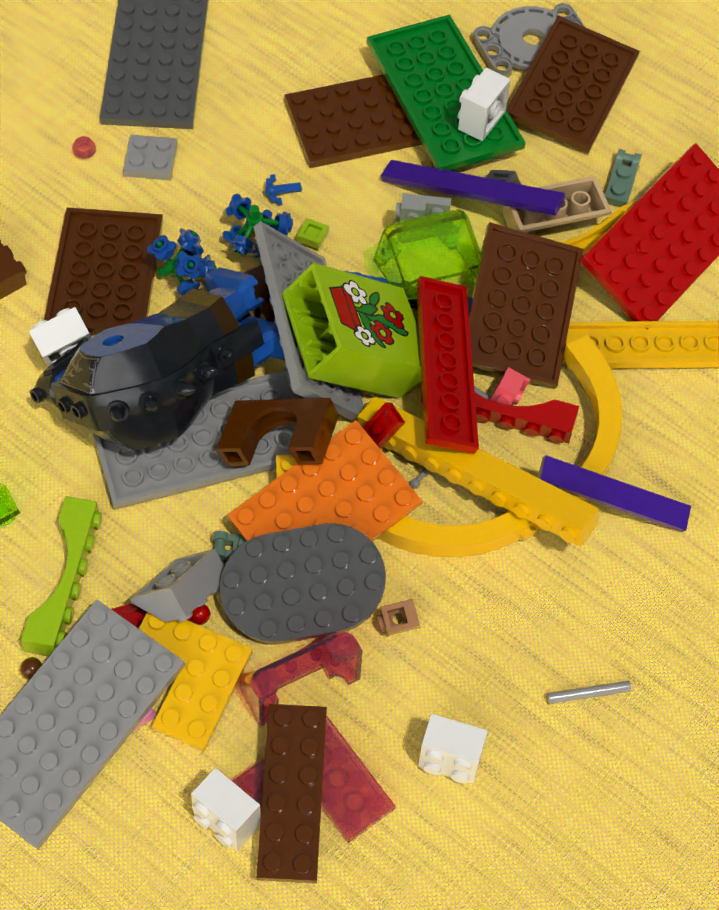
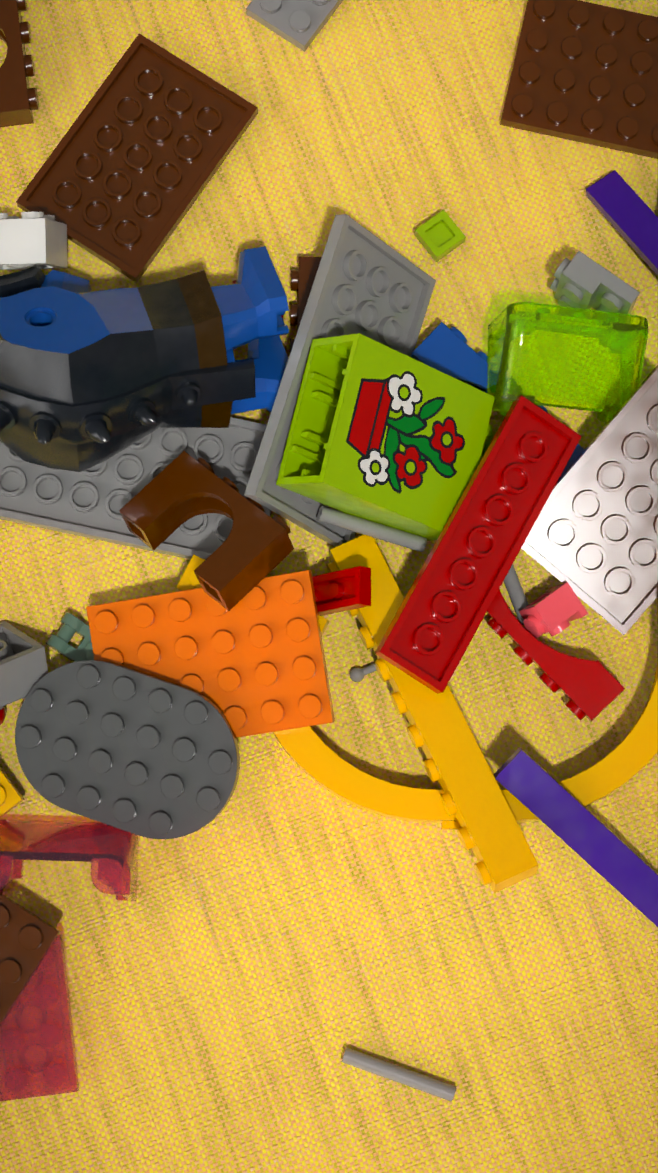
camera: 30 degrees right, 20 degrees up
(186, 262) = (227, 201): blue plant -> none
(238, 236) = (363, 187): blue plant -> none
(273, 190) = (425, 138): blue piece -> none
(375, 392) = (371, 529): none -> light grey bar
(404, 608) = (210, 859): medium nougat brick -> none
(452, 749) = (177, 1065): white brick -> none

